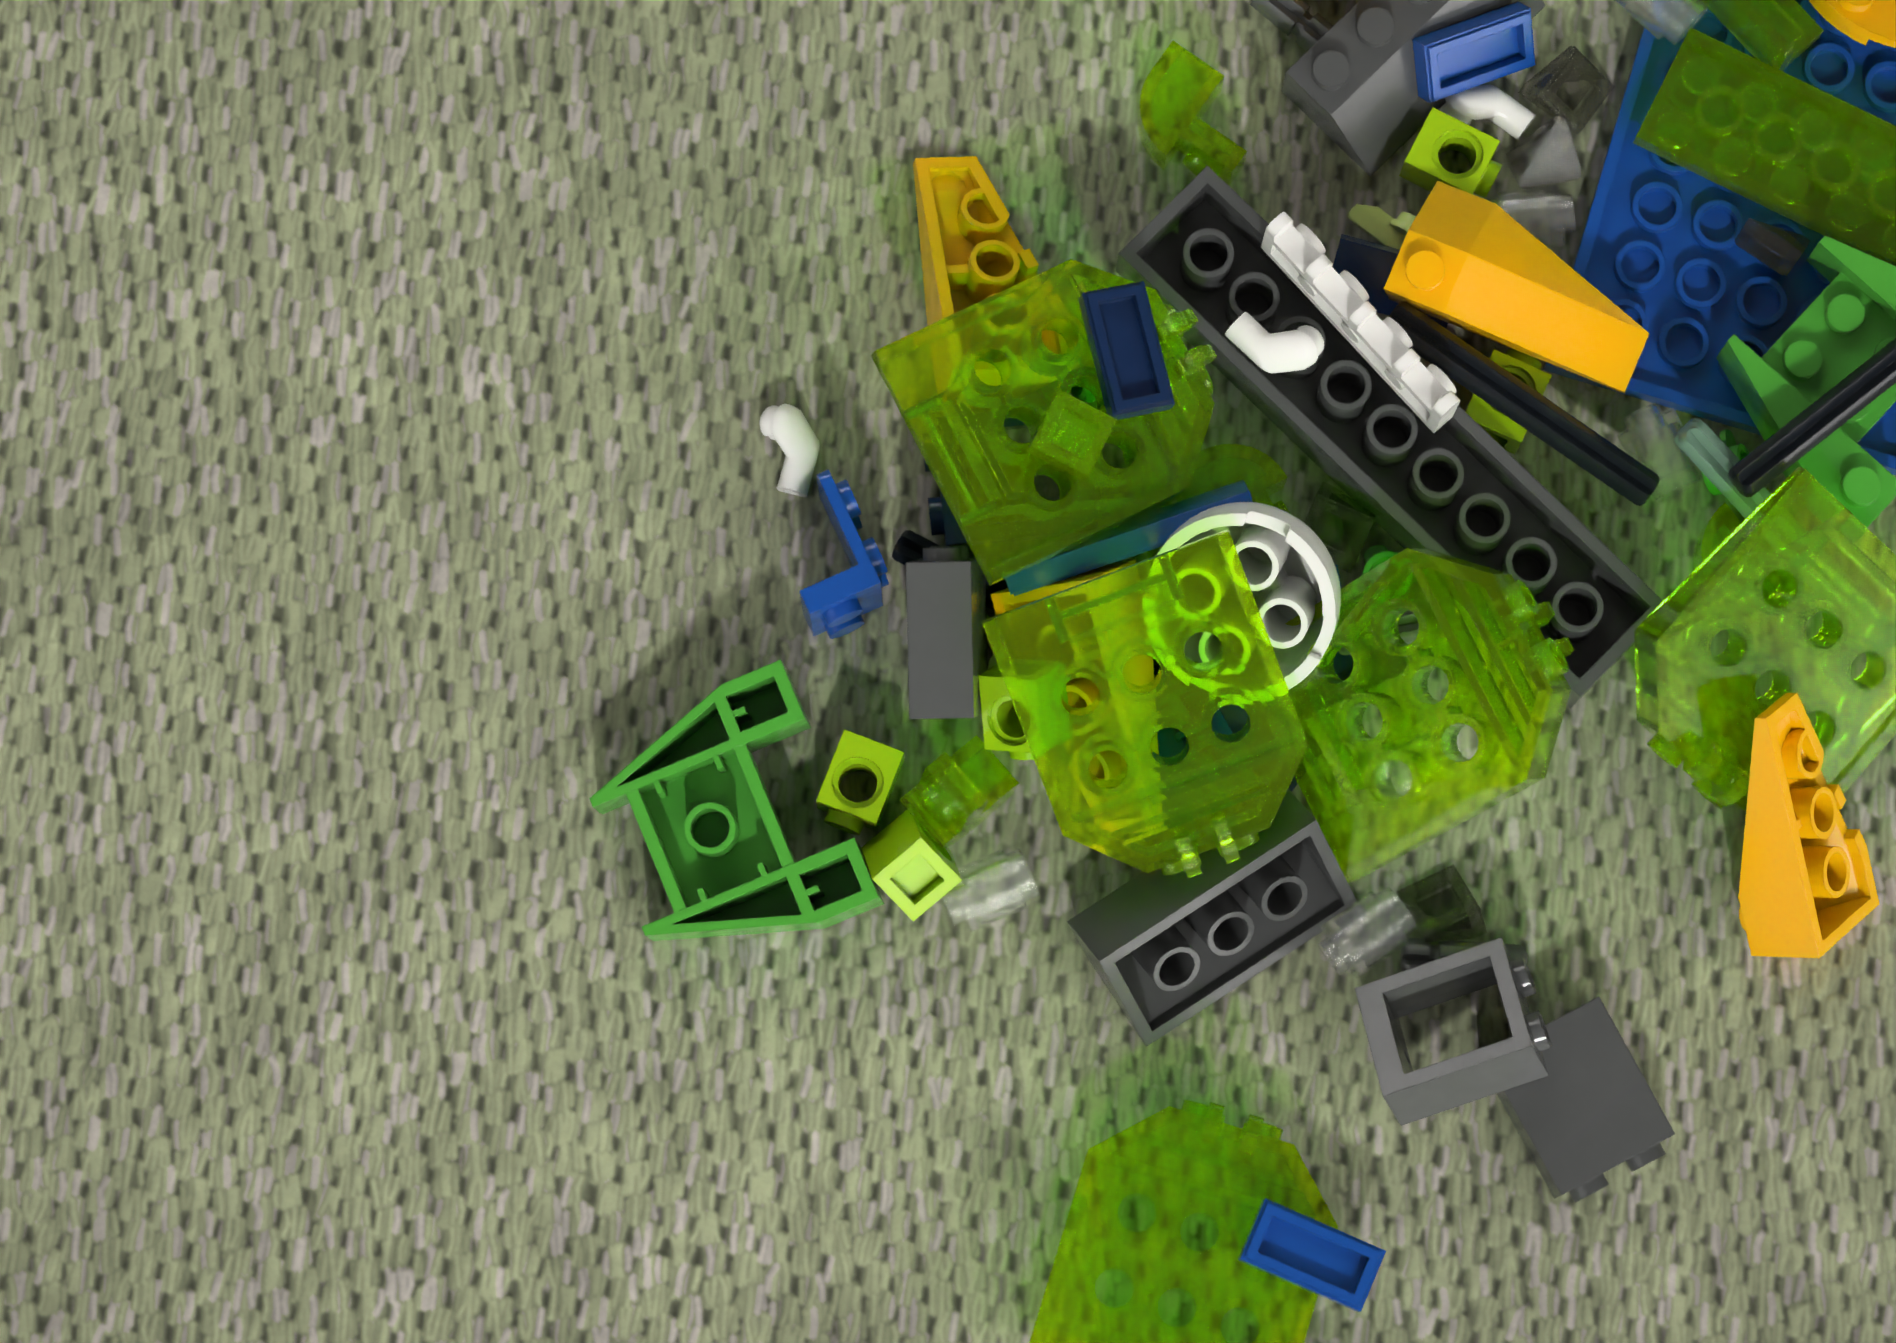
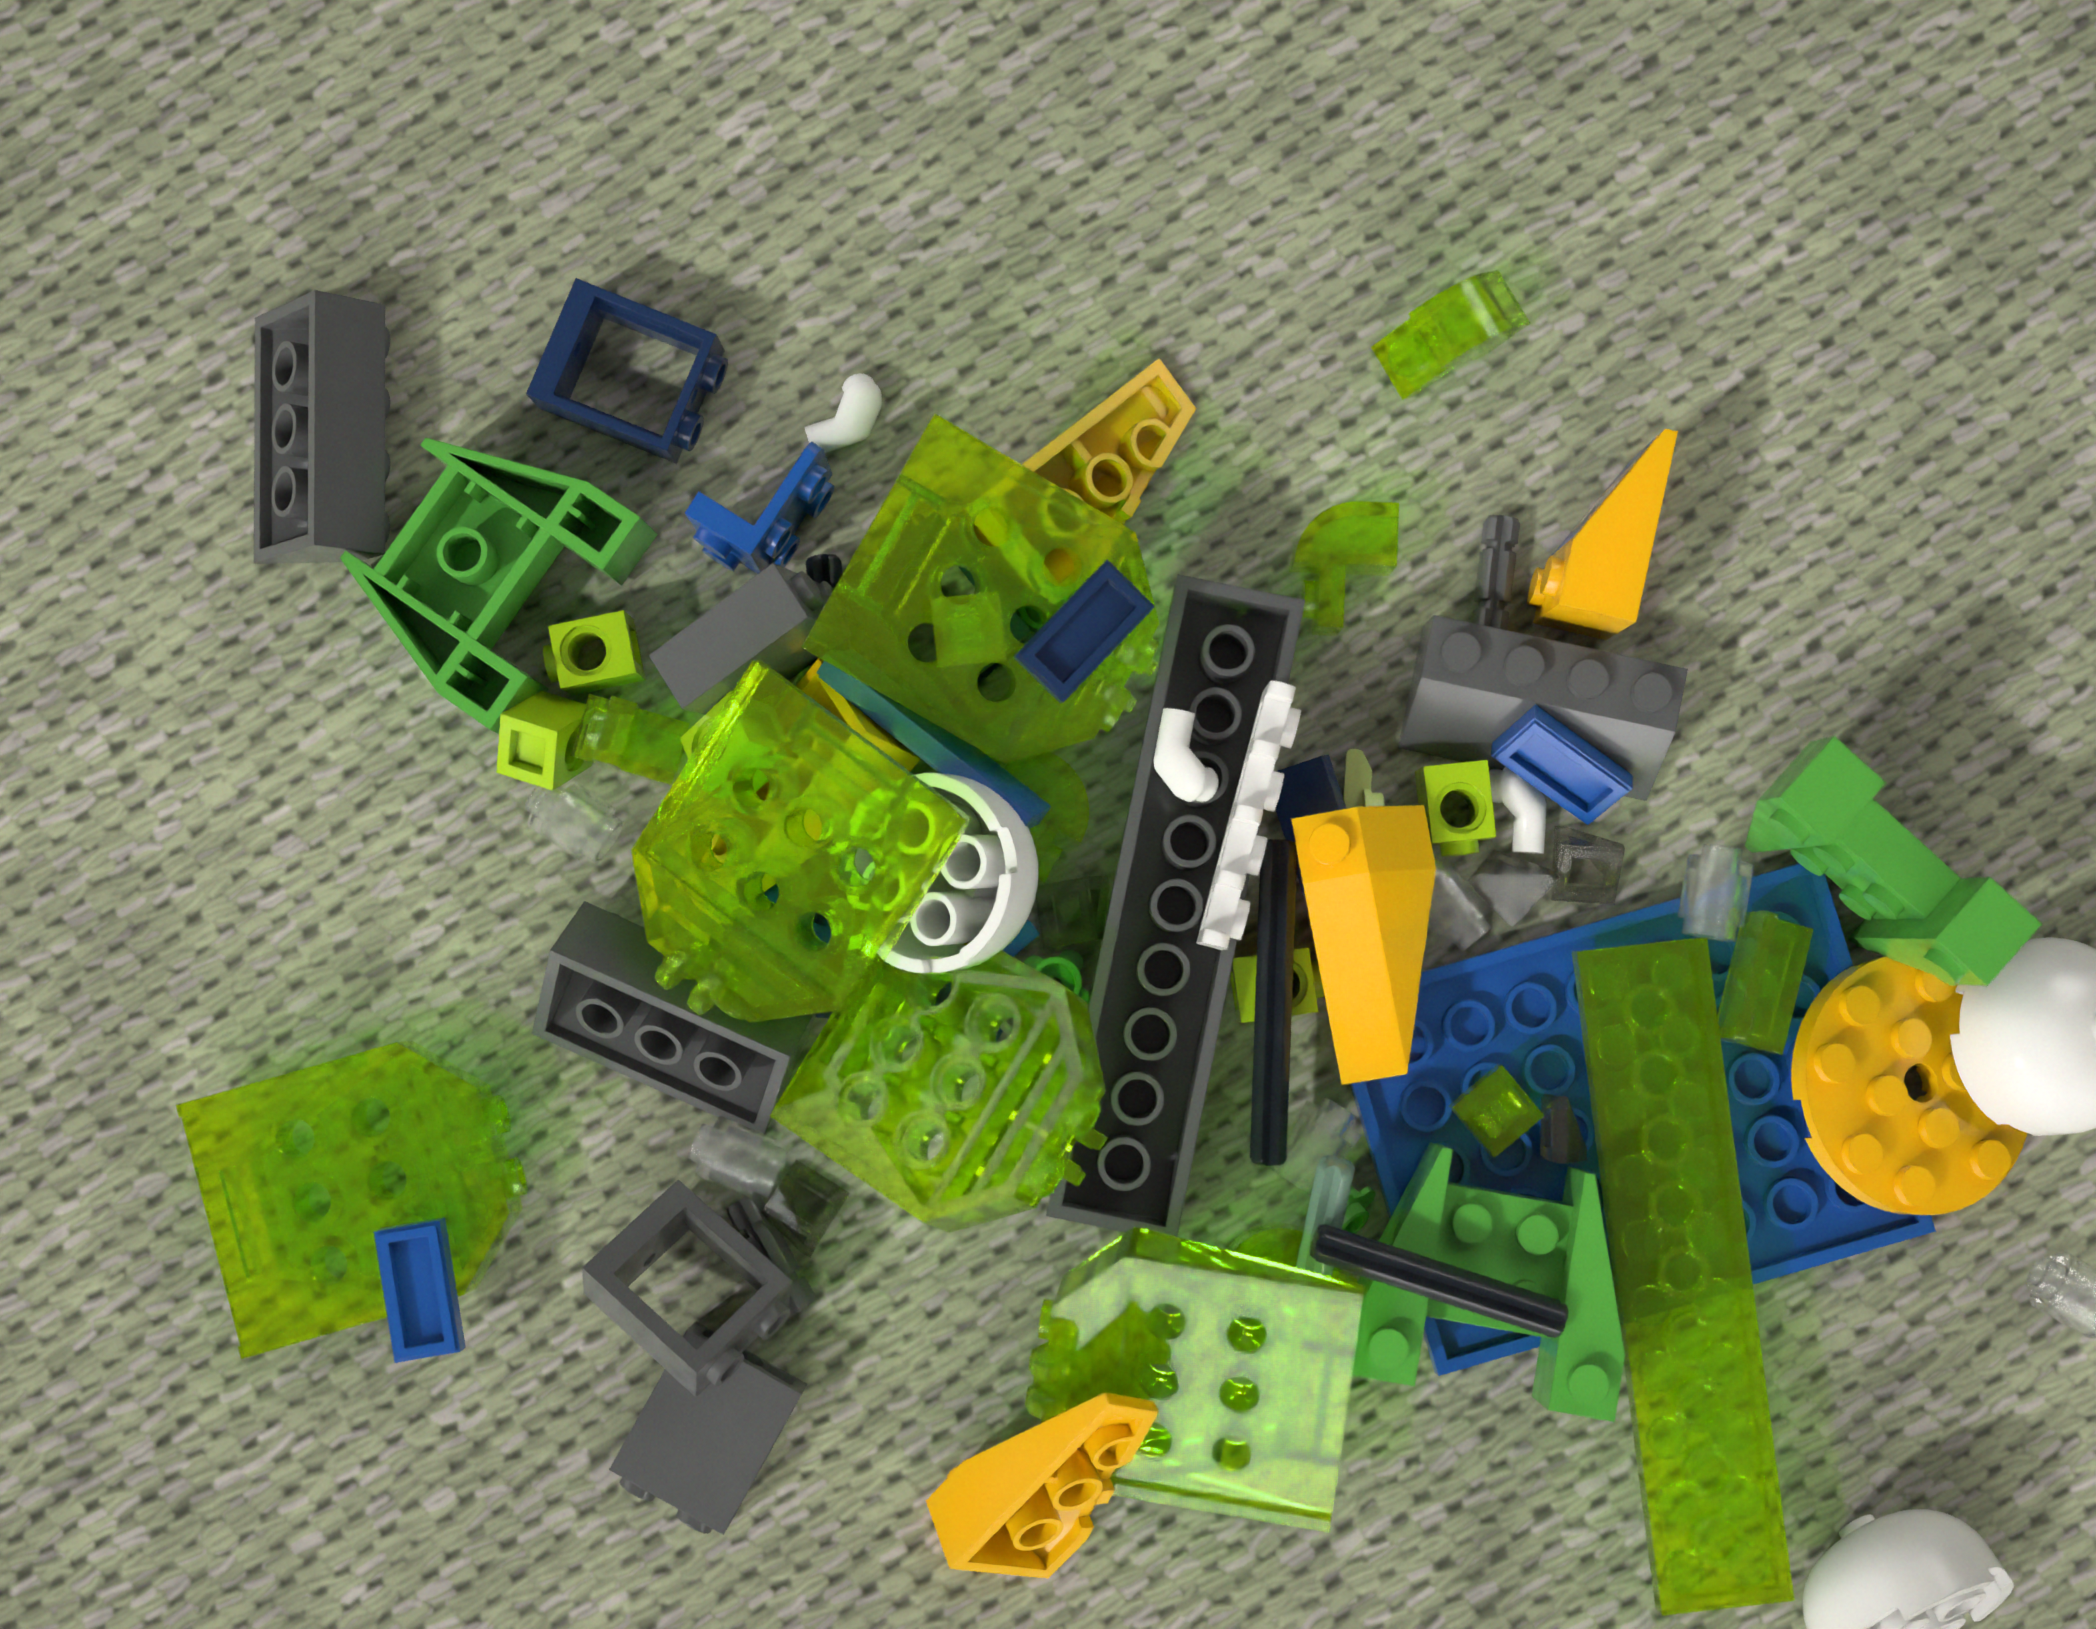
camera: 60 degrees right, 5 degrees up
(510, 898) = (320, 430): none -> dark grey slope
(680, 541) = (570, 348): none -> dark blue window
(1724, 286) = (1496, 1110): none -> clear neon green tile

